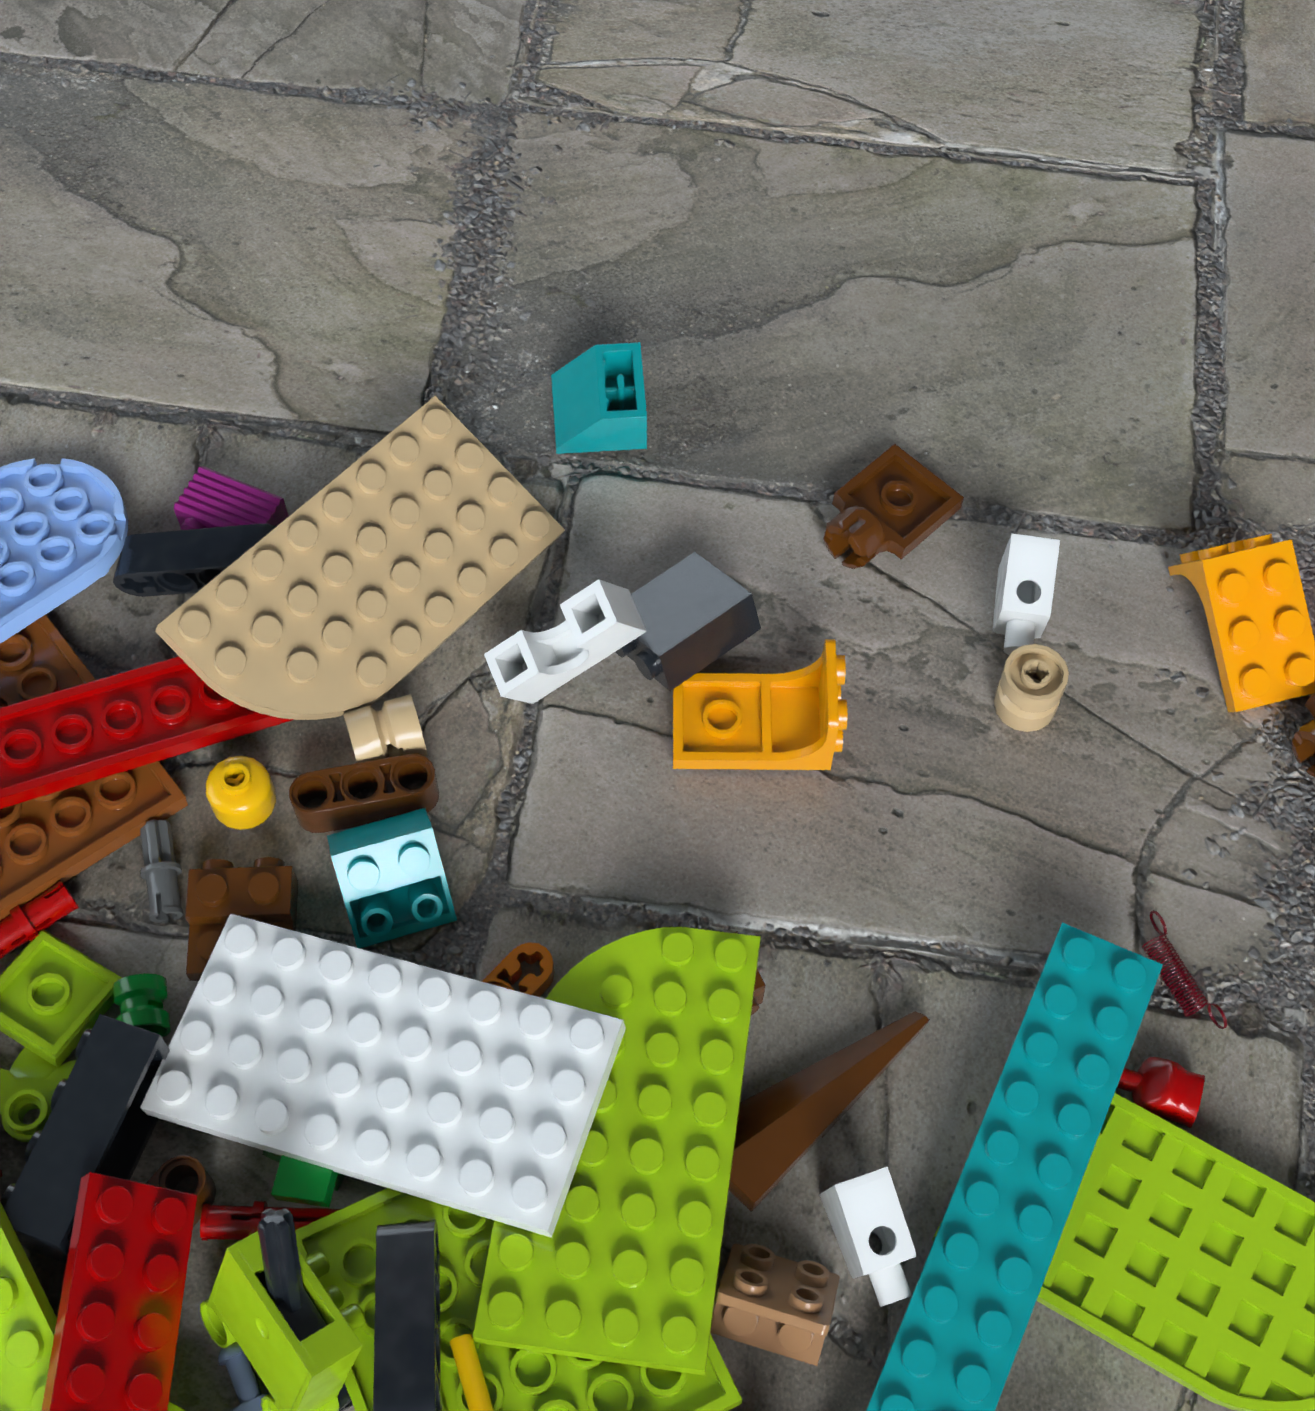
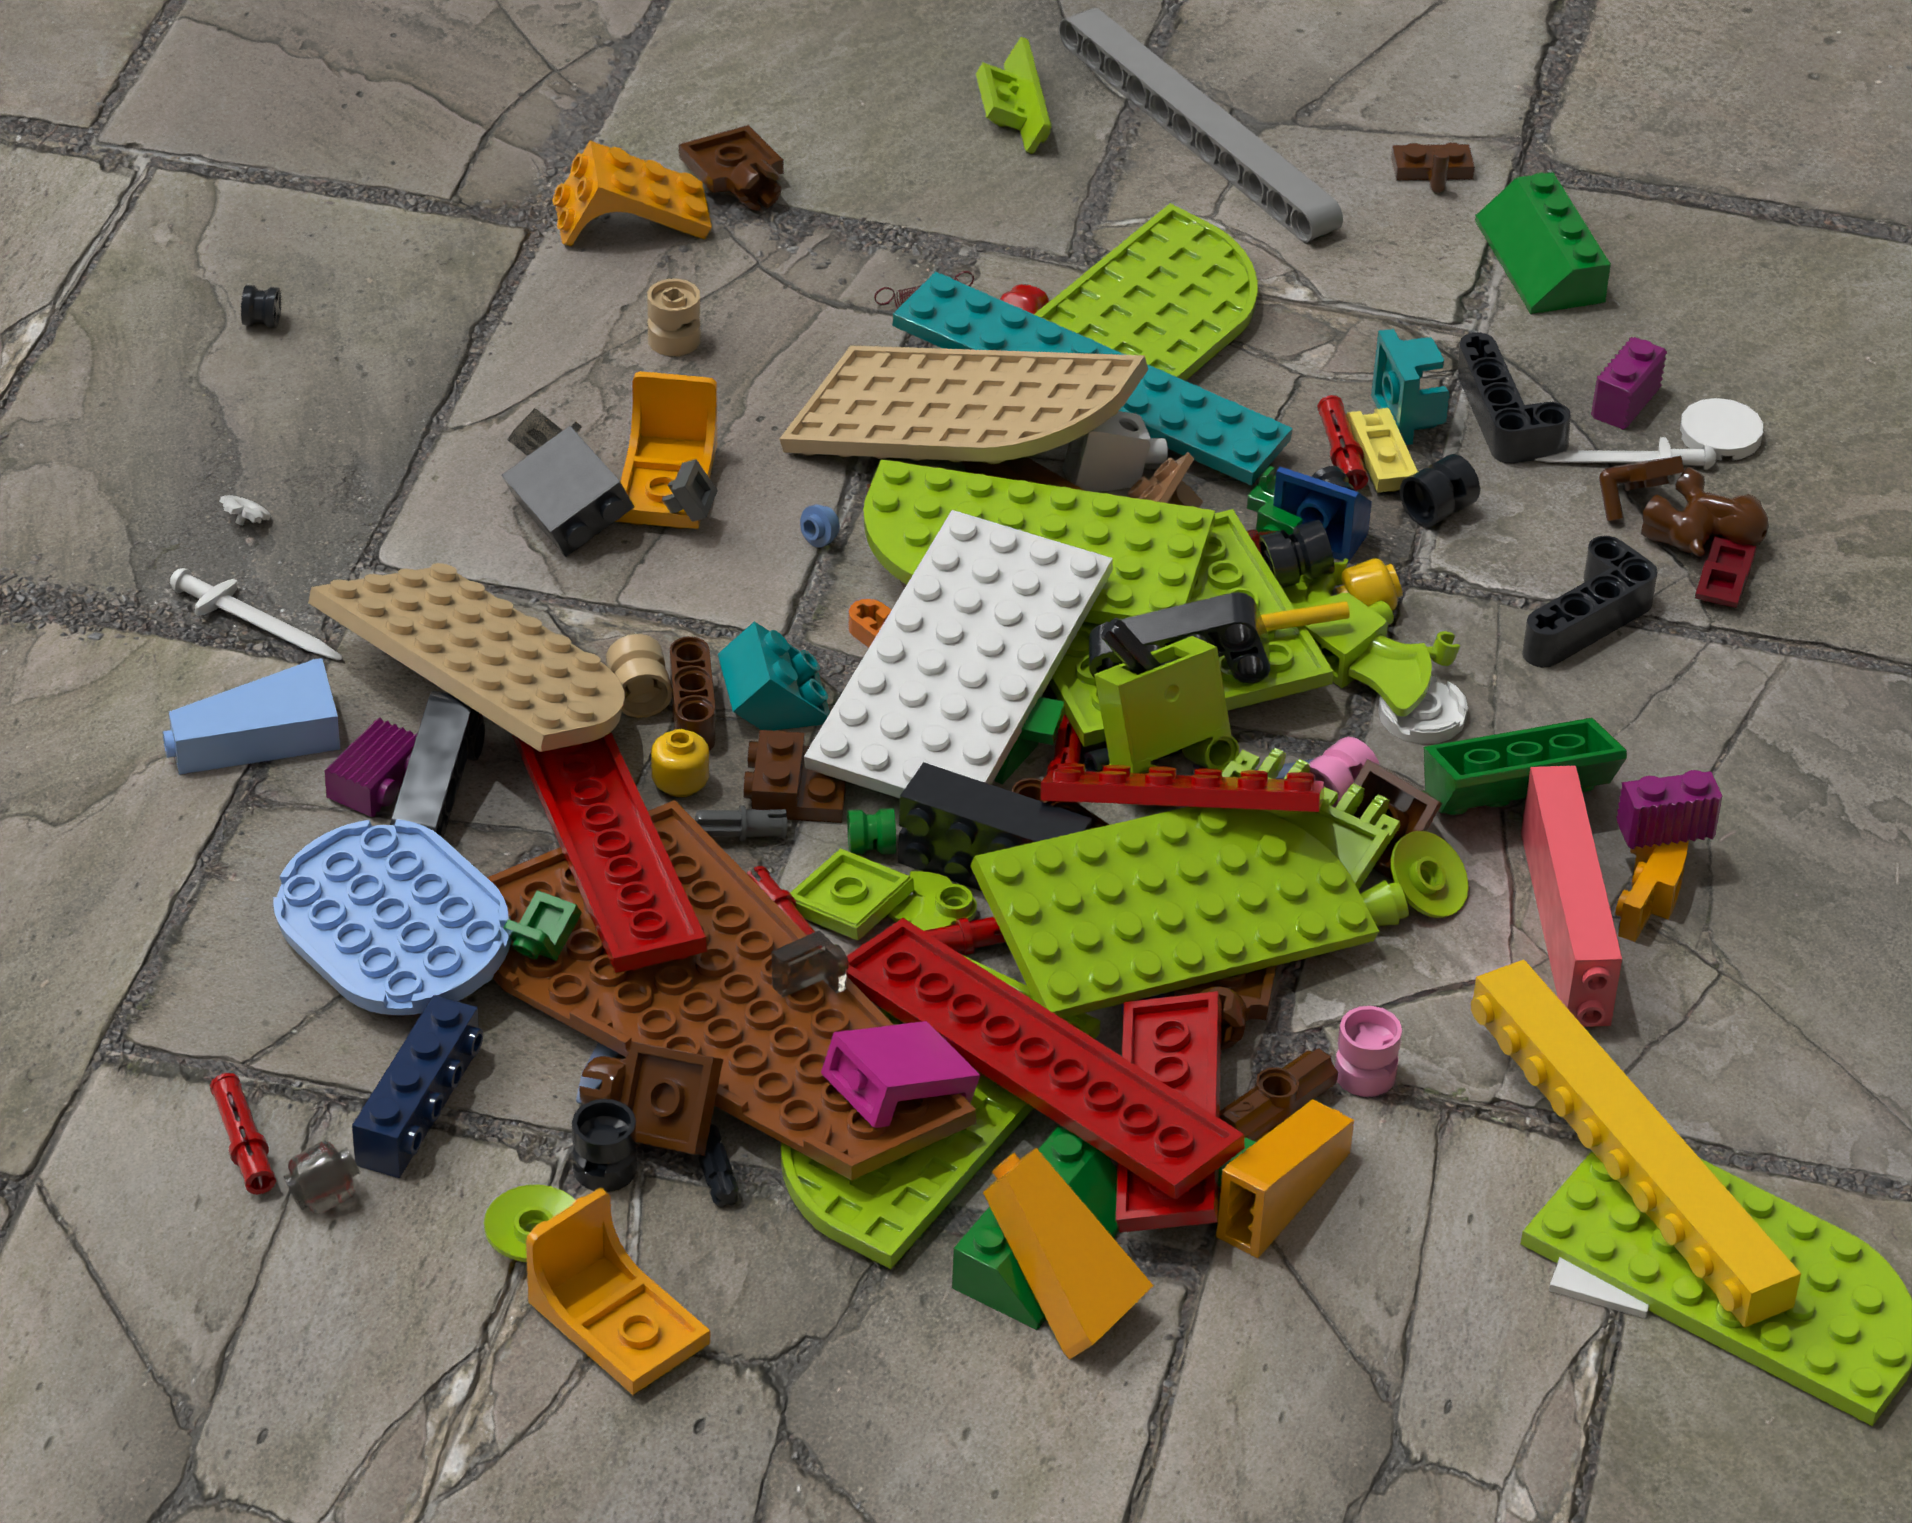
camera: 85 degrees left, 20 degrees down
(301, 412) = (256, 722): none -> light blue slope
(493, 349) = (221, 597): none -> white sword
(595, 626) = (581, 516): white arch -> none
(601, 400) = (314, 520): teal slope -> none
(633, 332) = (245, 509): none -> white plant
(684, 893) = (819, 525): none -> medium blue plate
(686, 742) = (691, 491): none -> dark grey tile
(788, 590) = (535, 431): none -> clear smoke bracket
(888, 509) = (476, 374): reddish brown plate -> none
(890, 1032) = (960, 403): none -> tan plate
(961, 302) = (261, 306): none -> black wheel
(1025, 589) = (584, 304): white torso -> none

